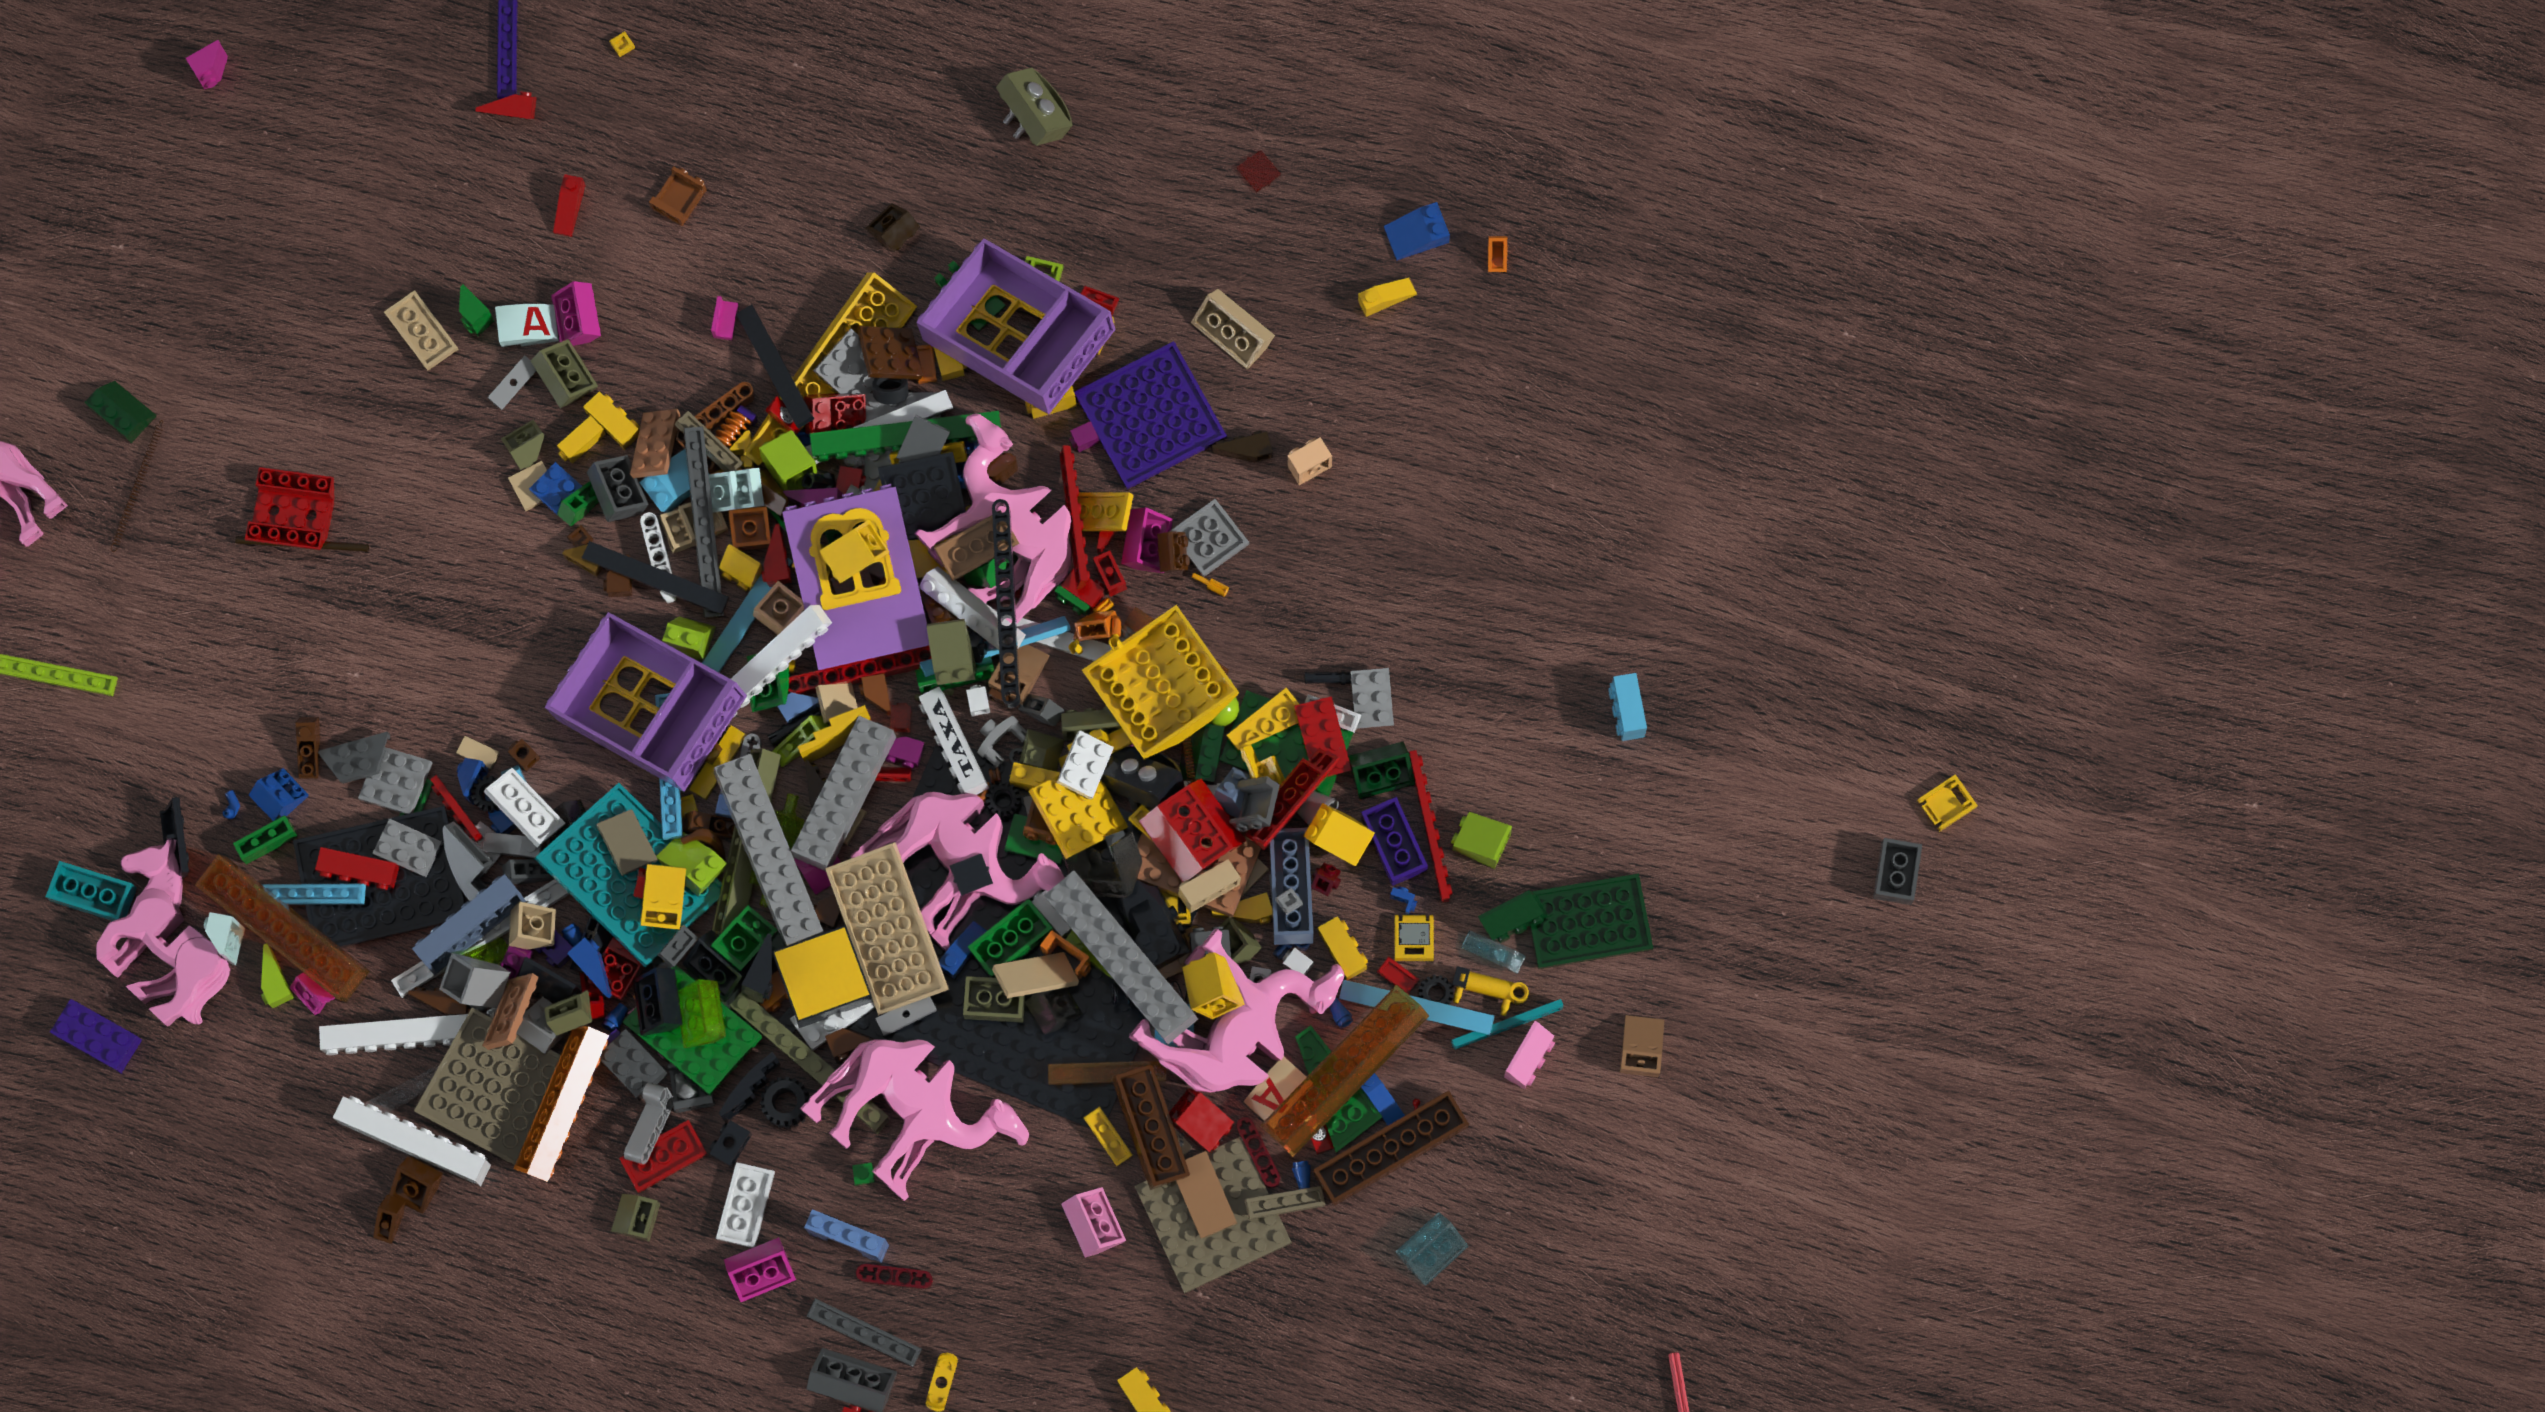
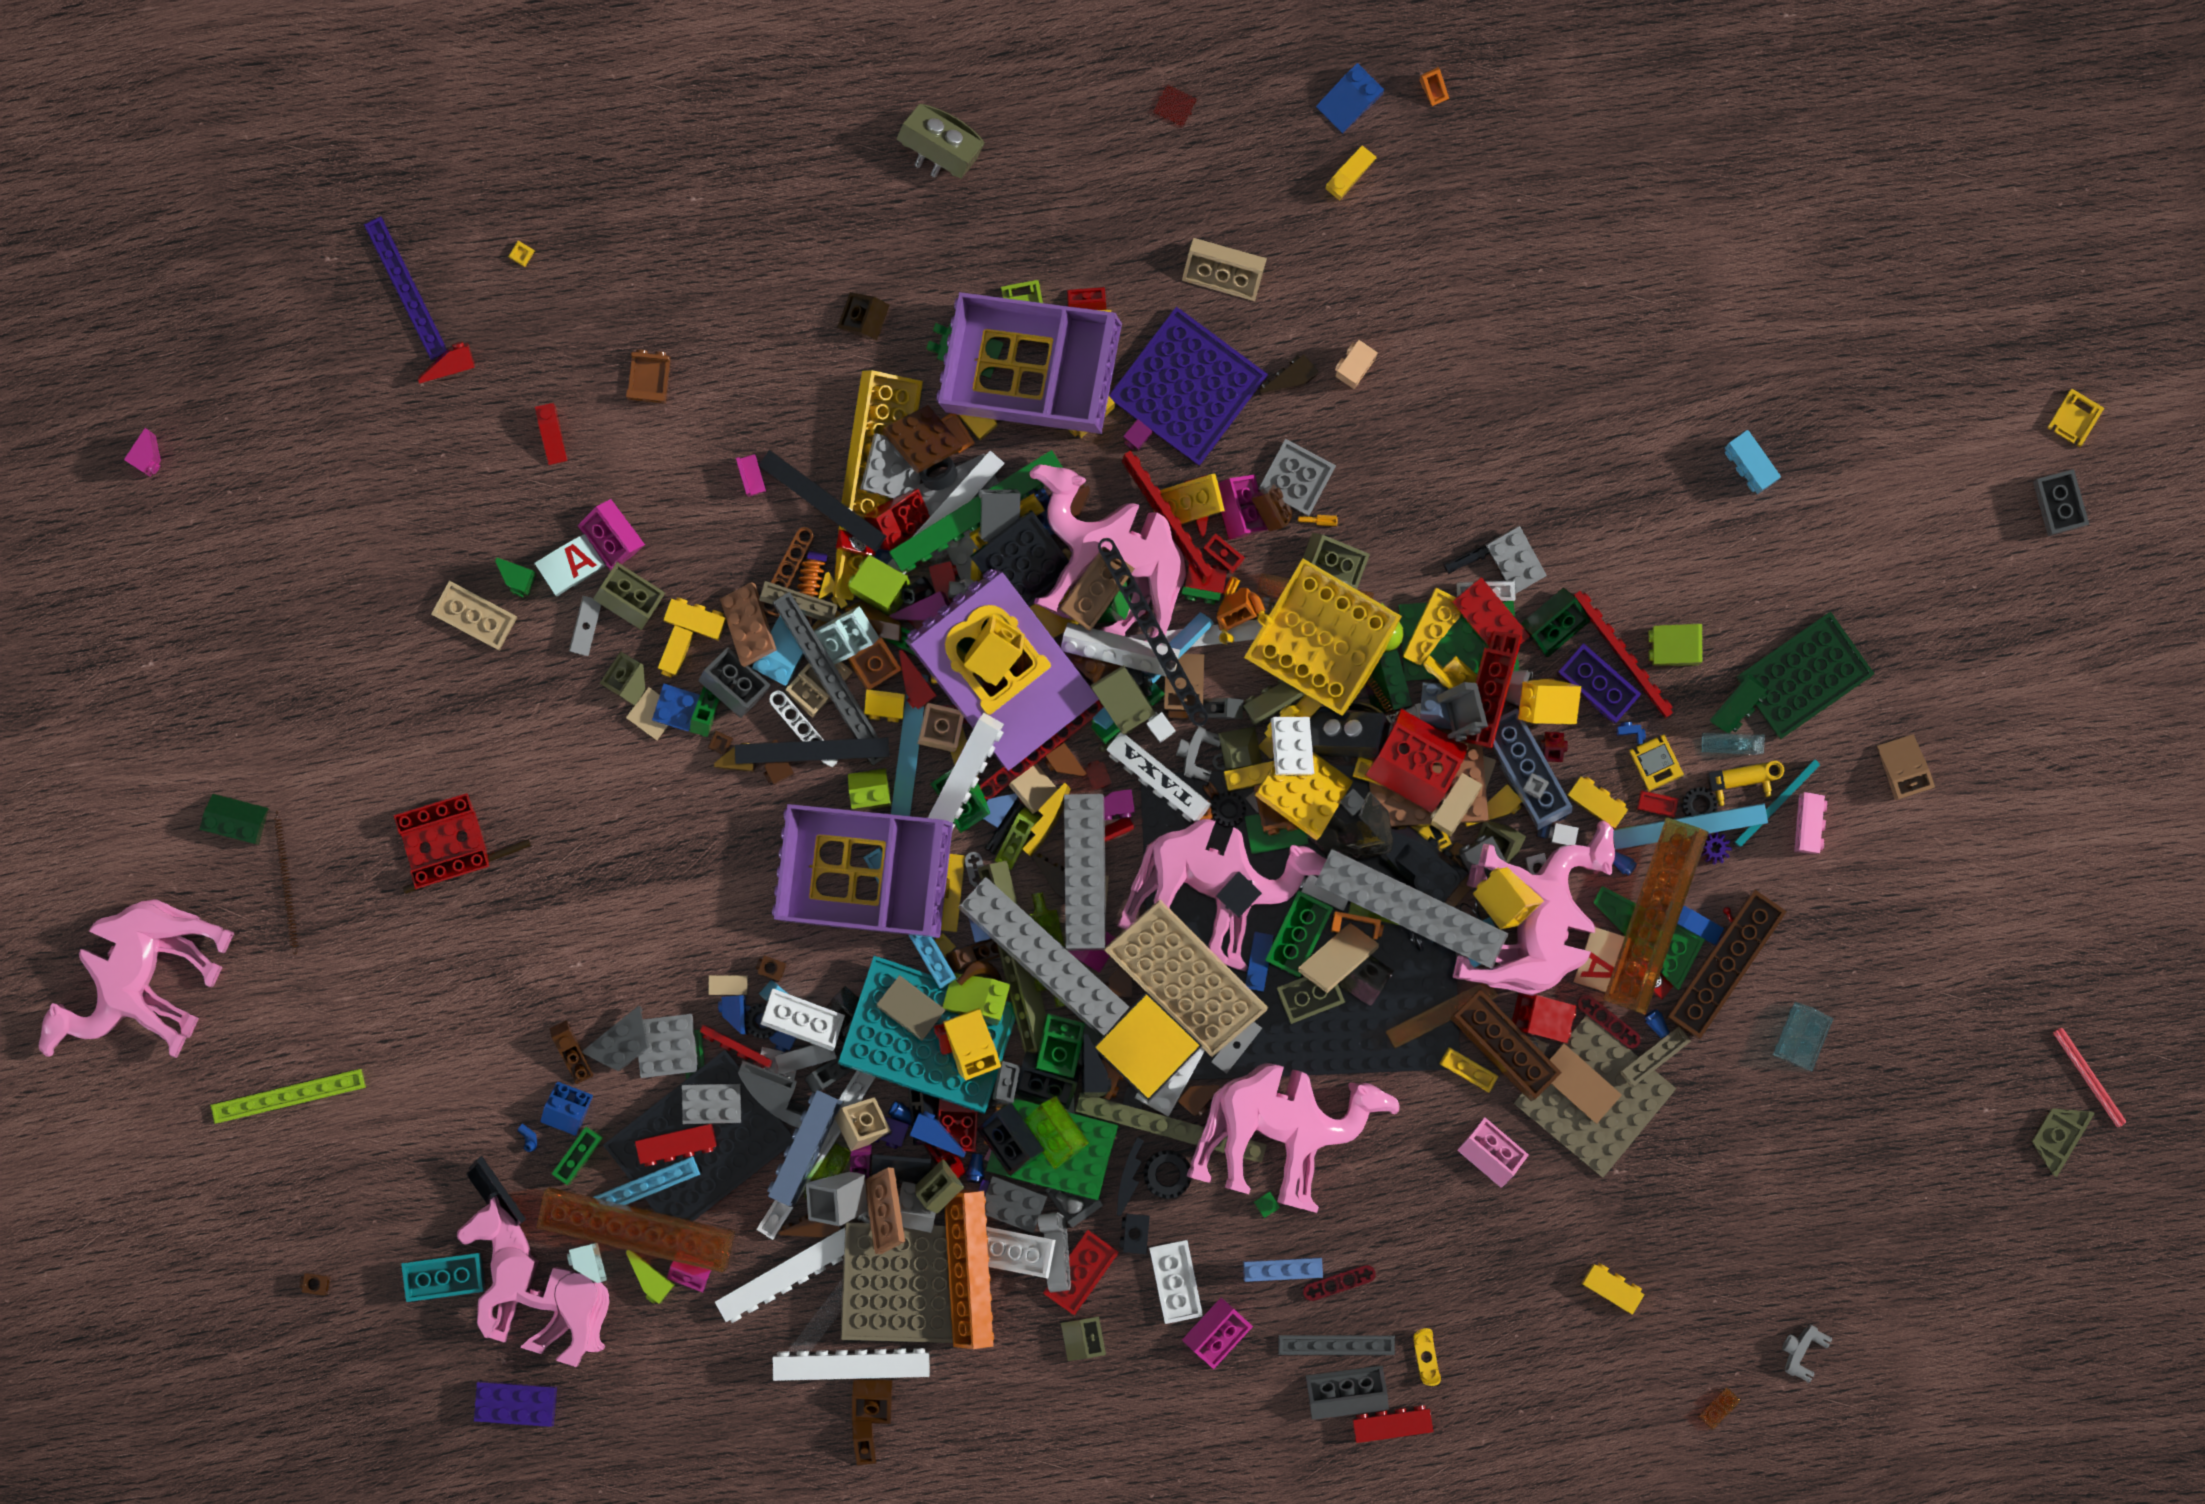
camera: 25 degrees left, 10 degrees up
(614, 1108) = (1019, 1252): none -> white plate
(1210, 624) = (1336, 558): none -> olive slope
(1425, 1035) = (1721, 851): none -> dark purple gear

